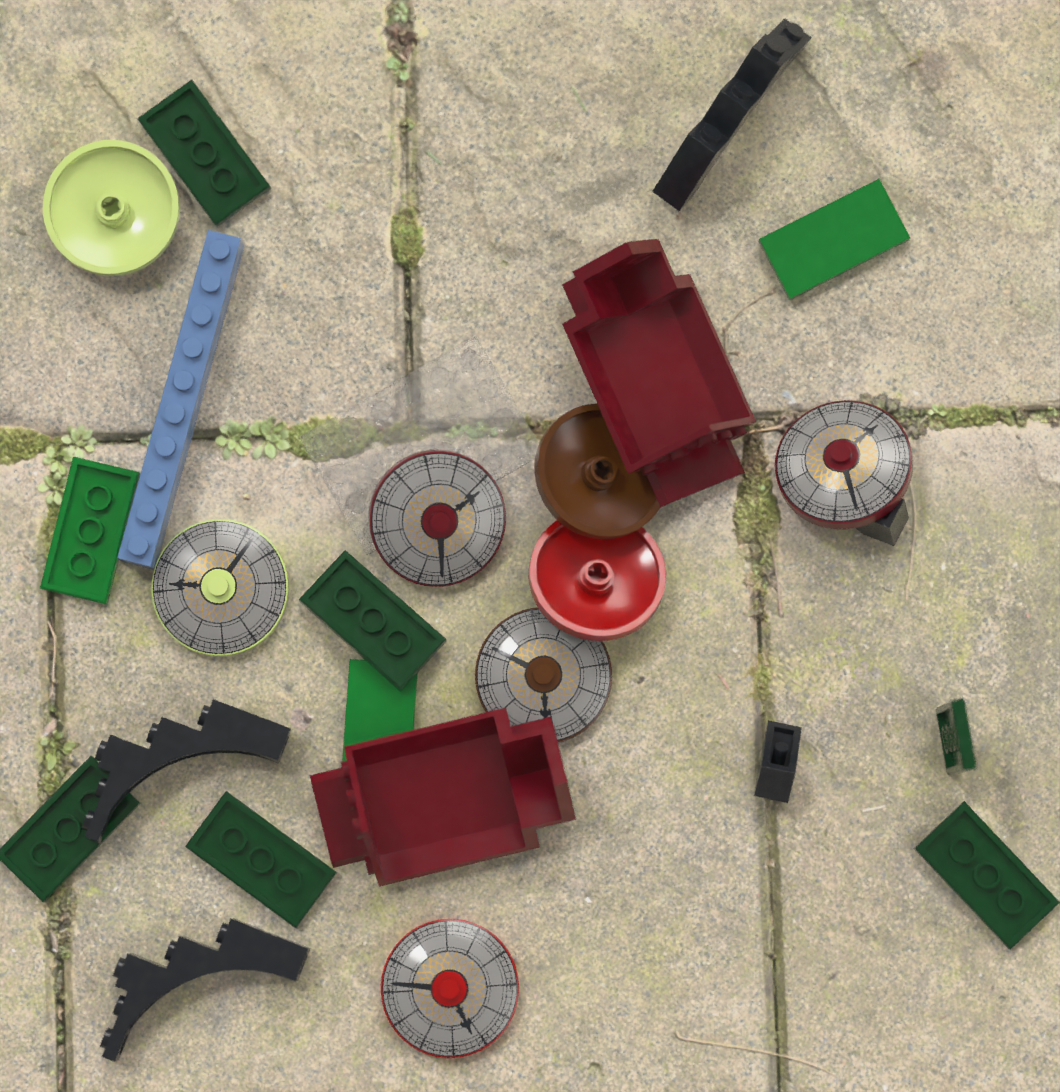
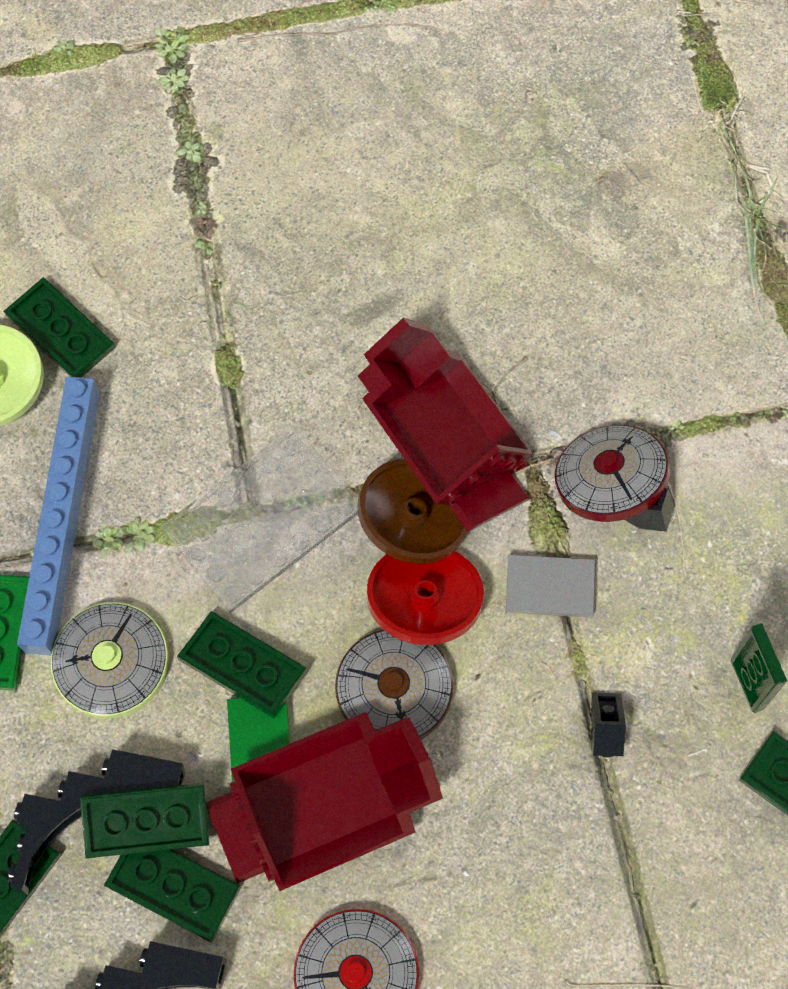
camera: 10 degrees left, 15 degrees down
(240, 785) = (144, 820): none -> dark green tile
(437, 518) = (283, 570): light grey dish -> none
(729, 112) = (469, 216): black arch -> none
(745, 586) = (550, 586): none -> light grey tile
(834, 239) = (566, 312): green tile -> none

